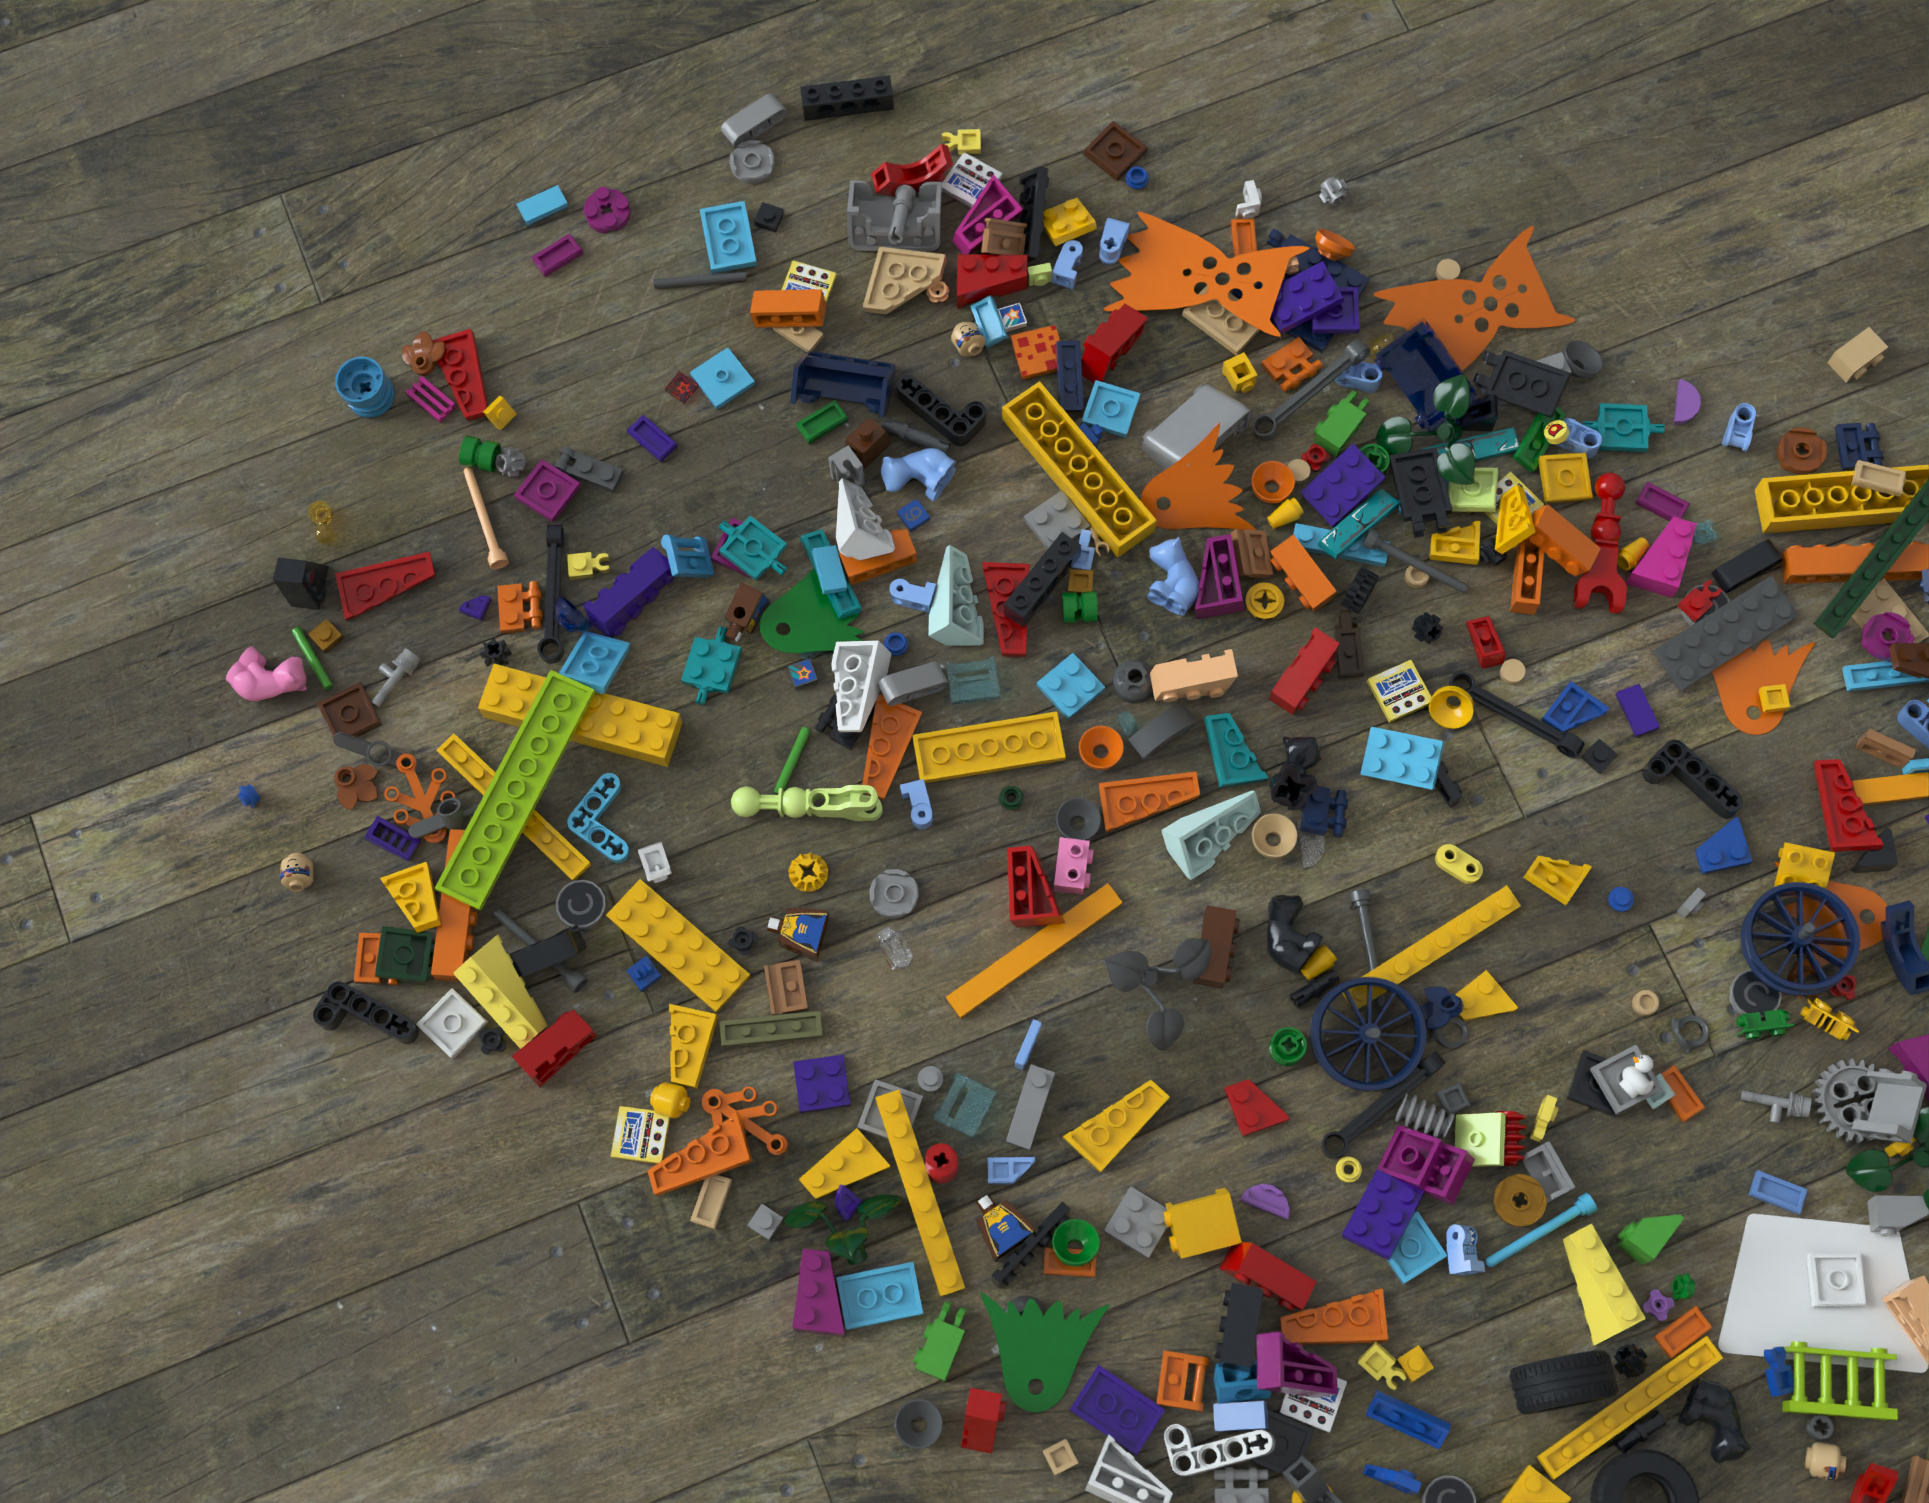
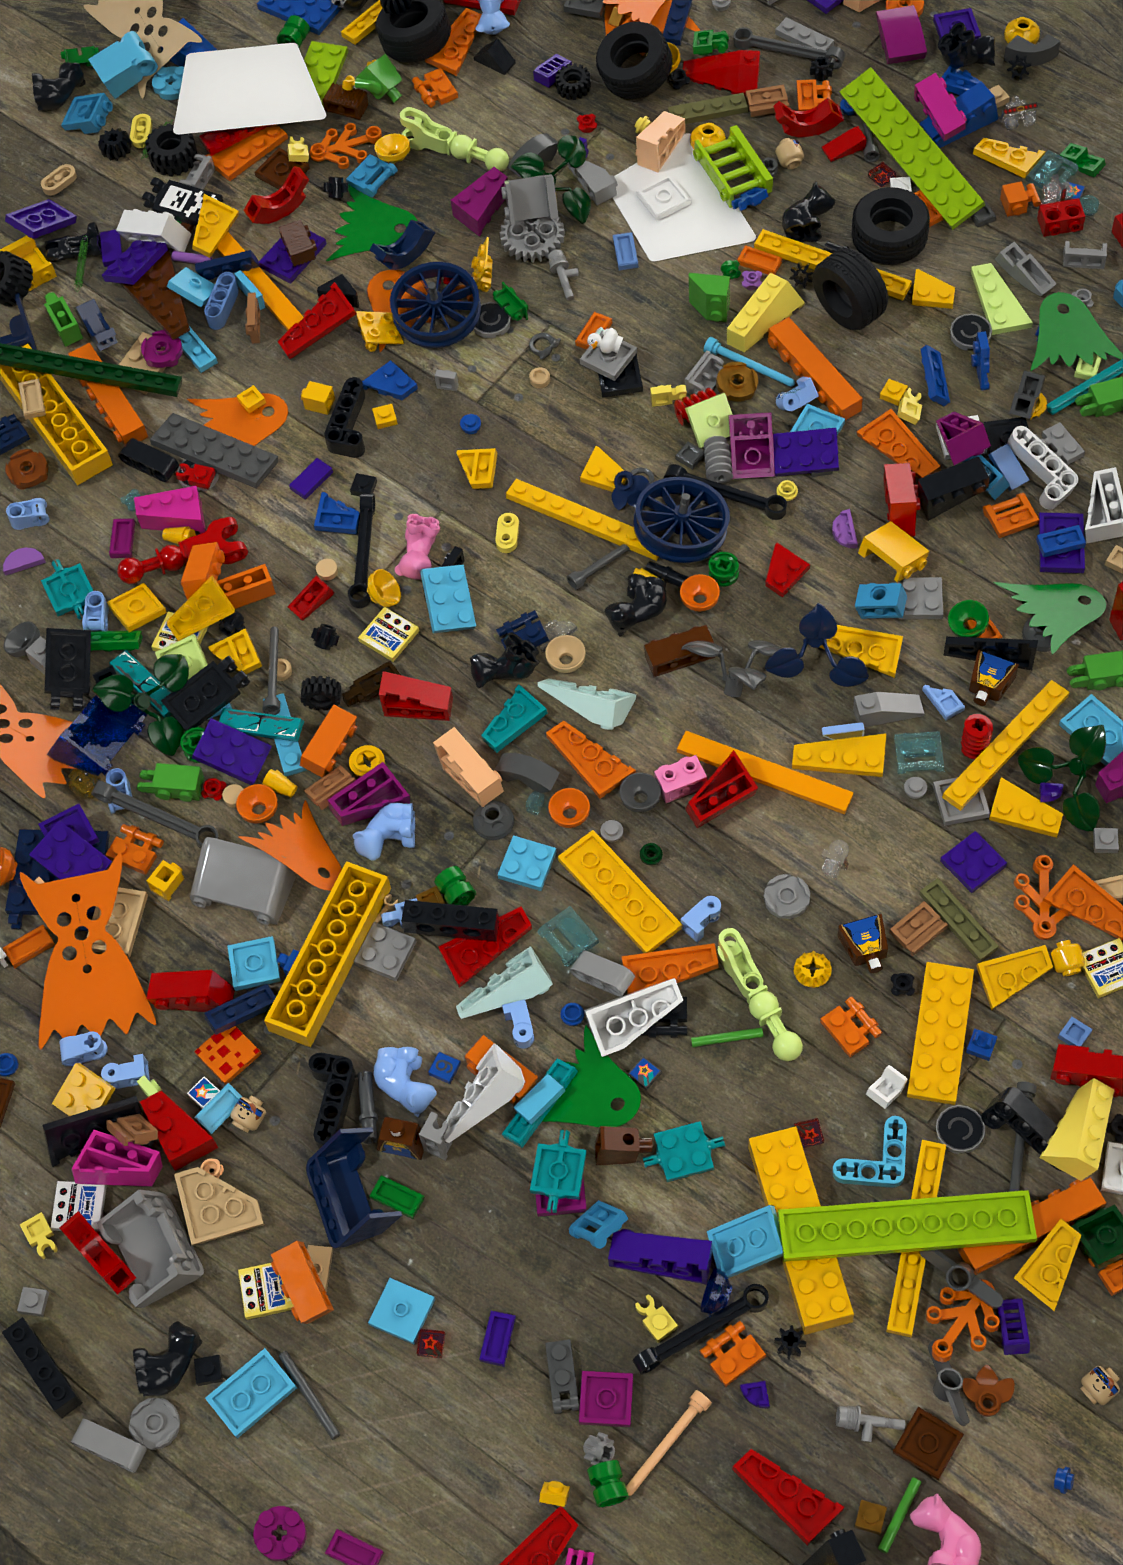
camera: 115 degrees left, 10 degrees down
(598, 1059) = (1075, 1032): none -> medium blue plate
(661, 777) = (810, 1132): none -> clear red tile
(733, 864) = (845, 1031): none -> orange plate
(784, 178) = (164, 1372): none -> black animal
(902, 208) = (142, 1241): light grey pin -> none
(910, 117) = (33, 1301): none -> light grey plate
(1000, 1043) = (846, 756): none -> yellow wing
(1056, 776) = (611, 831): none -> light grey plate
(1112, 1401) = (1061, 541): none -> blue plate
(1137, 1065) = (817, 627): none -> dark blue plant
(1143, 1184) = (881, 600): none -> dark azure brick
(1273, 991) = (699, 585): none -> orange piece
(1490, 1293) = (809, 362): none -> orange brick
(1493, 768) = (420, 537): none -> bright pink animal
(1556, 432) = (101, 624): light yellow tile -> none
(1680, 820) = (384, 416): none -> yellow plate
(1739, 763) = (318, 397): none -> yellow brick
(1894, 1392) = (707, 139): none -> yellow piece

